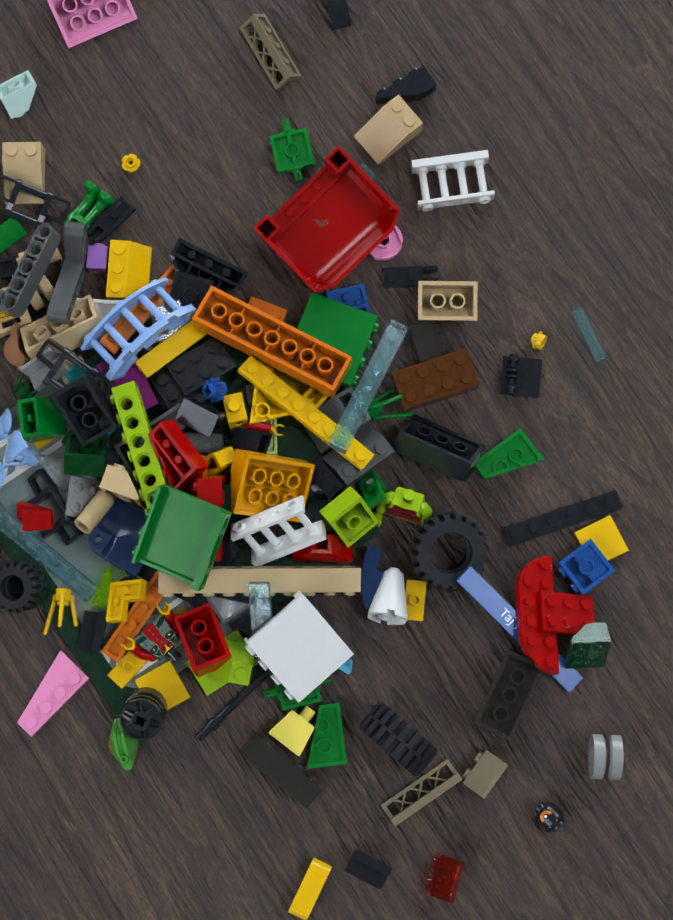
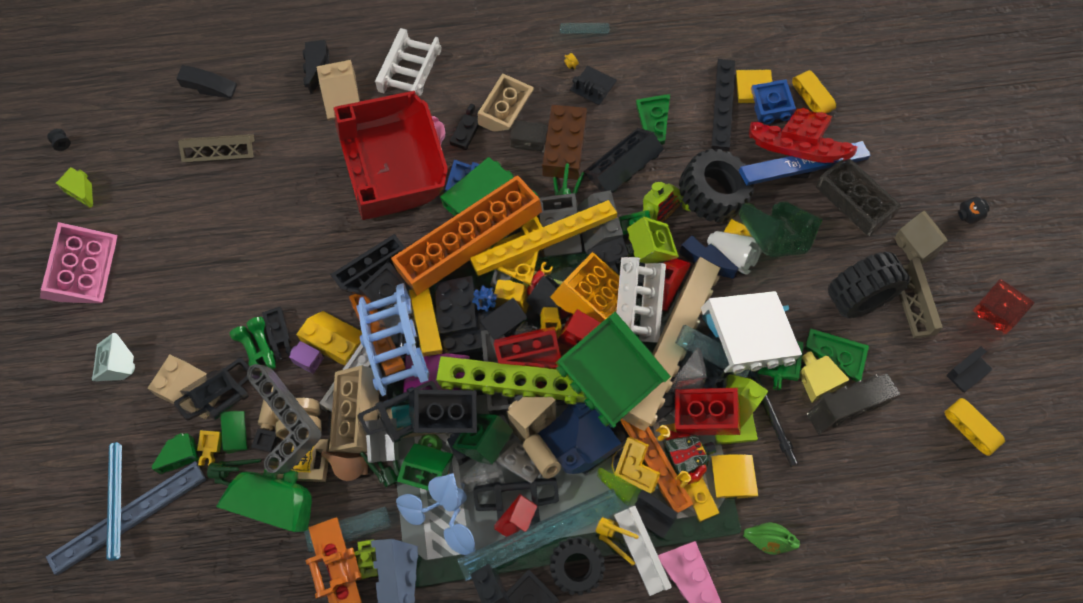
camera: 65 degrees left, 15 degrees down
(25, 192) = (207, 388): none -> black panel
(57, 636) = (643, 551): none -> white fence
(71, 274) = (303, 379): dark grey beam -> none
(130, 167) = (238, 298): yellow plate -> none
(147, 704) = (755, 498): black wheel -> none
(236, 633) = (715, 379): none -> black gear
(292, 150) = (310, 165): green plate -> none
(367, 387) = (548, 184): clear light blue plate -> none
(426, 633) = (783, 233): none -> clear green windscreen
(588, 647) = (843, 117): clear green slope -> none
(605, 756) = (939, 146): light grey wheel -> none
(620, 605) = (813, 92): none -> yellow beam

